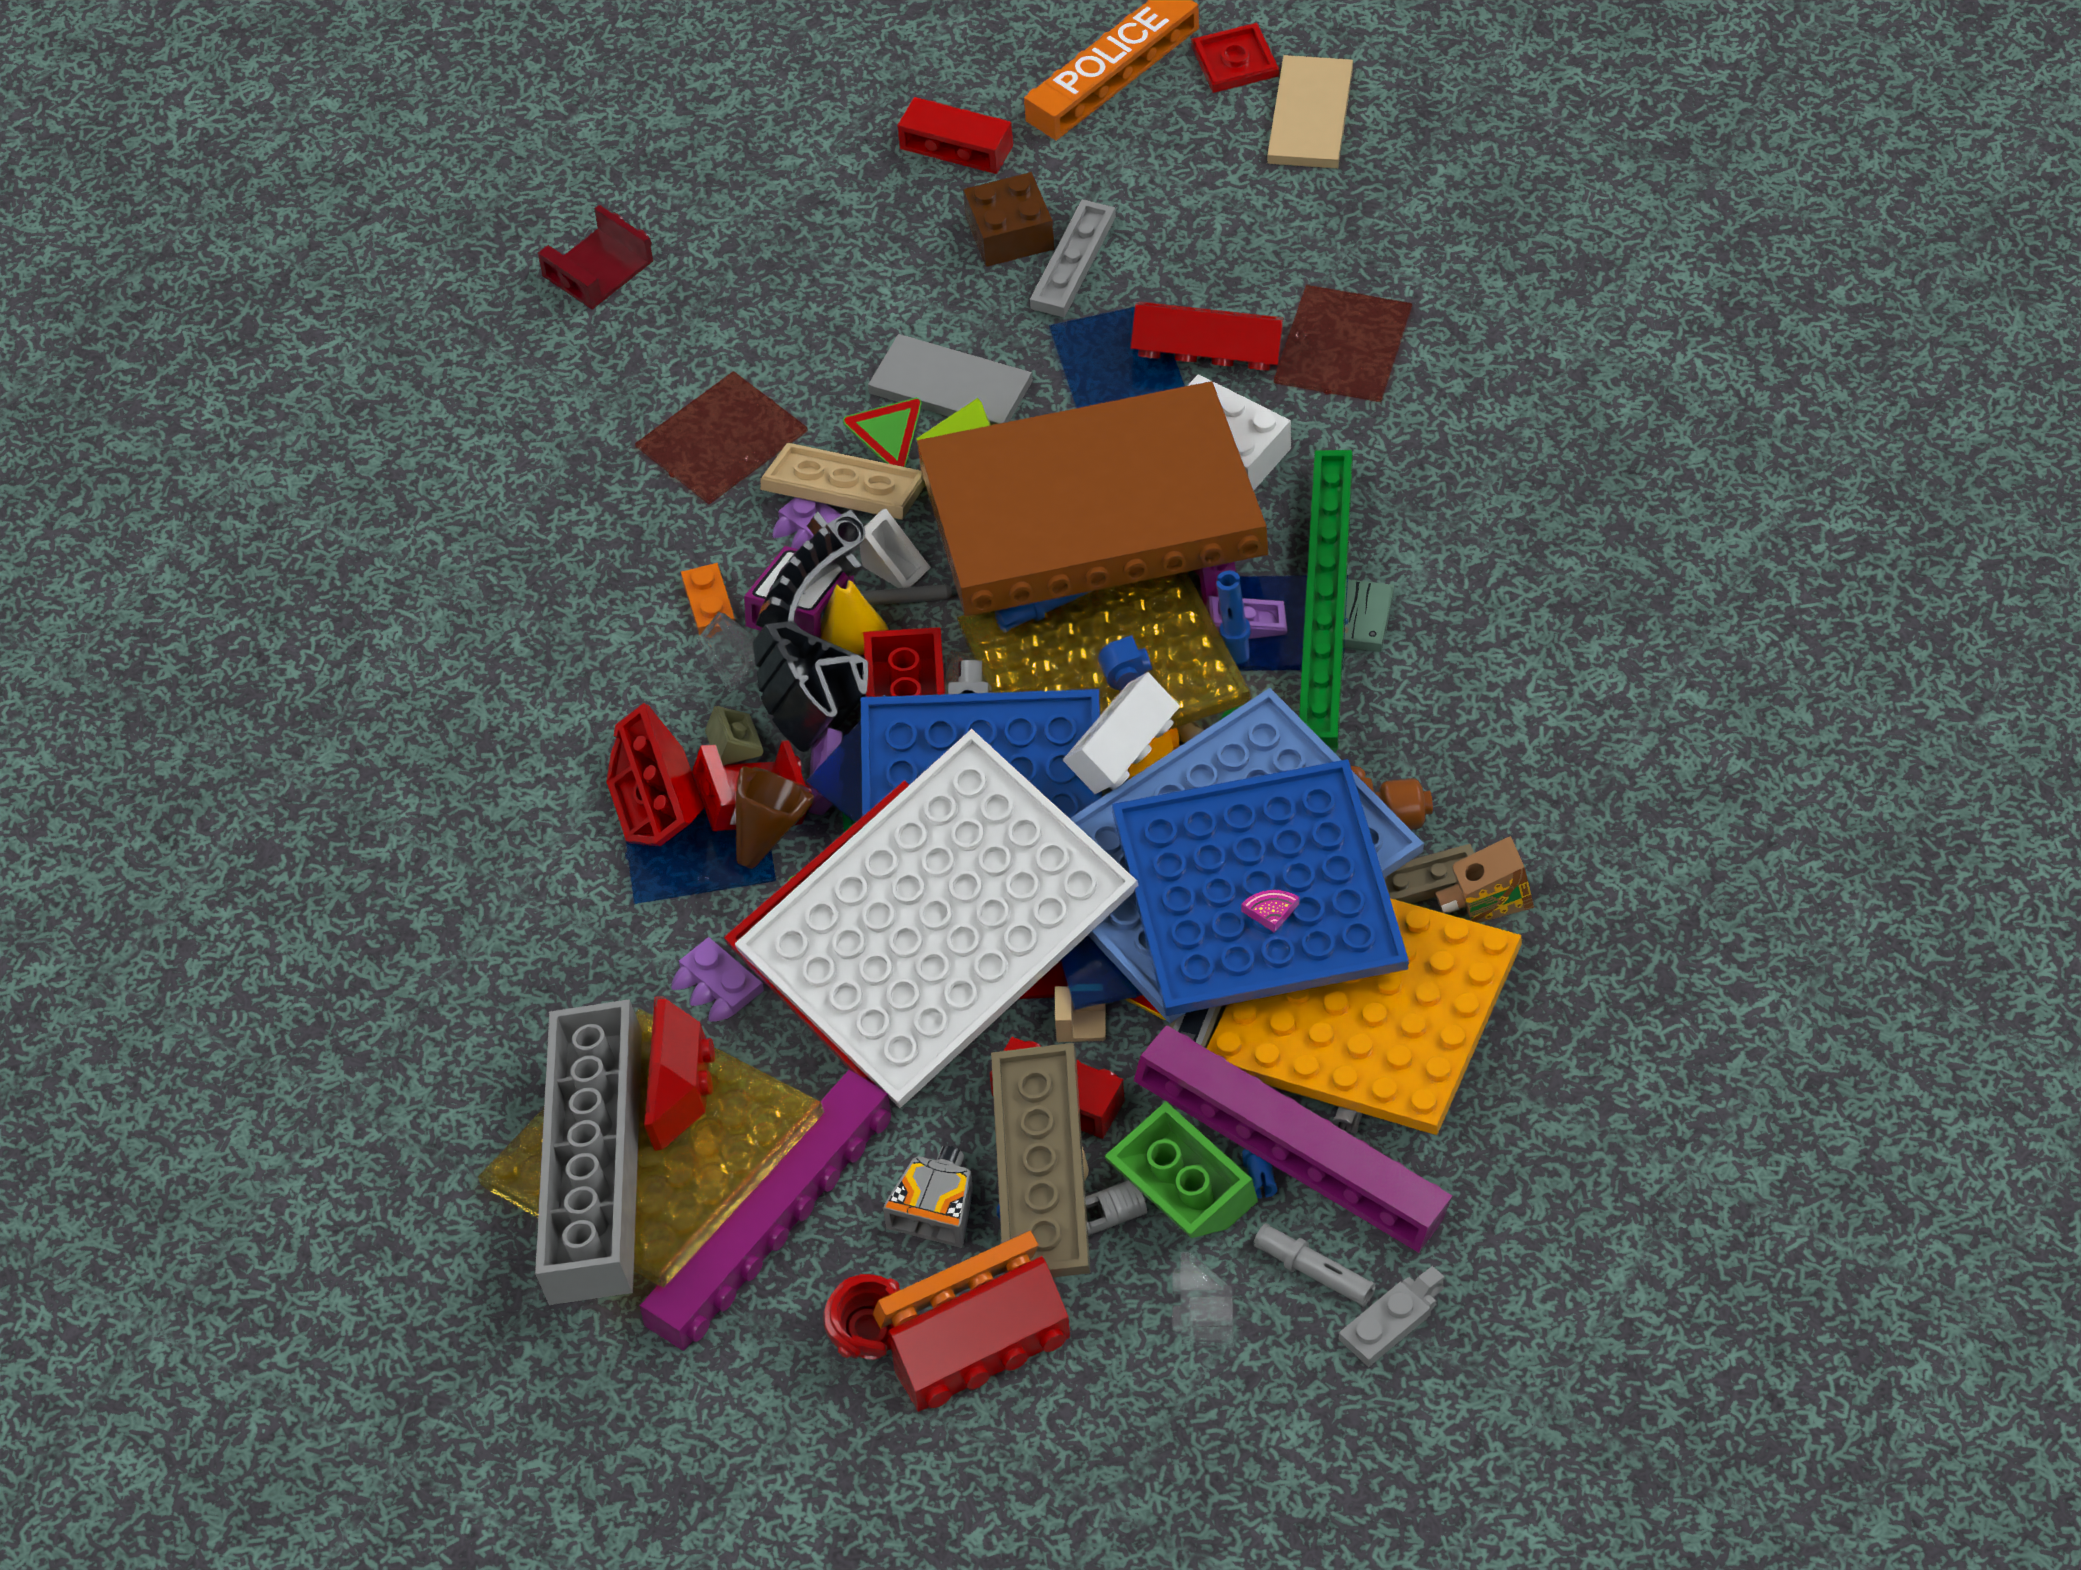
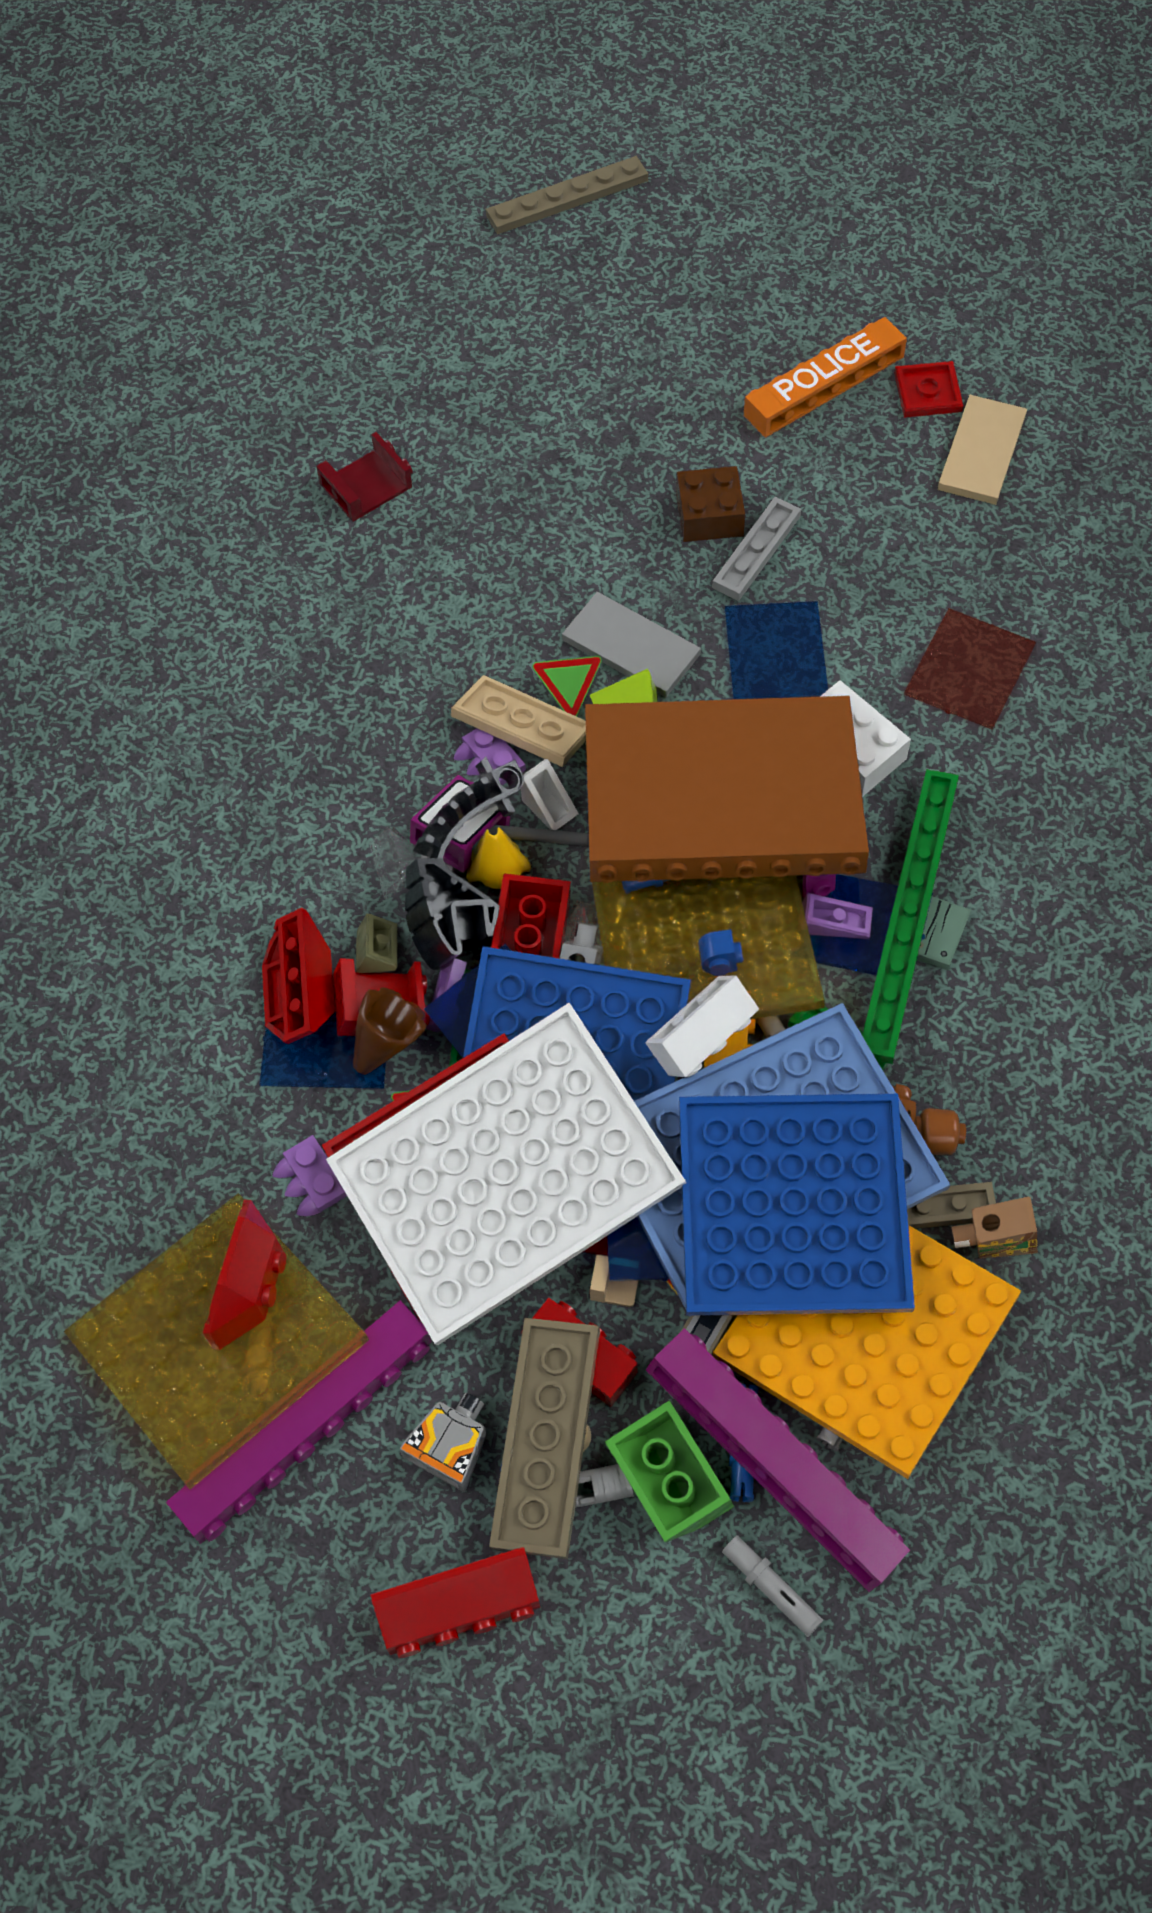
camera: 10 degrees right, 10 degrees up
(589, 1153) = (150, 1349): light grey brick -> none
(706, 594) = (386, 804): orange plate -> none
(721, 437) = (431, 658): clear red piece -> none
(850, 1316) = (357, 1561): red helmet -> none
(944, 1285) = (425, 1562): orange plate -> none
(955, 135) = (682, 419): red brick -> none
(1205, 1305) = (665, 1609): clear slope -> none
(1206, 333) = (855, 640): red slope -> none
(1234, 626) = (824, 931): blue pin -> none
(1270, 907) = (799, 1232): dark pink tile -> none
(1392, 1316) = (832, 1656): light grey hinge -> none

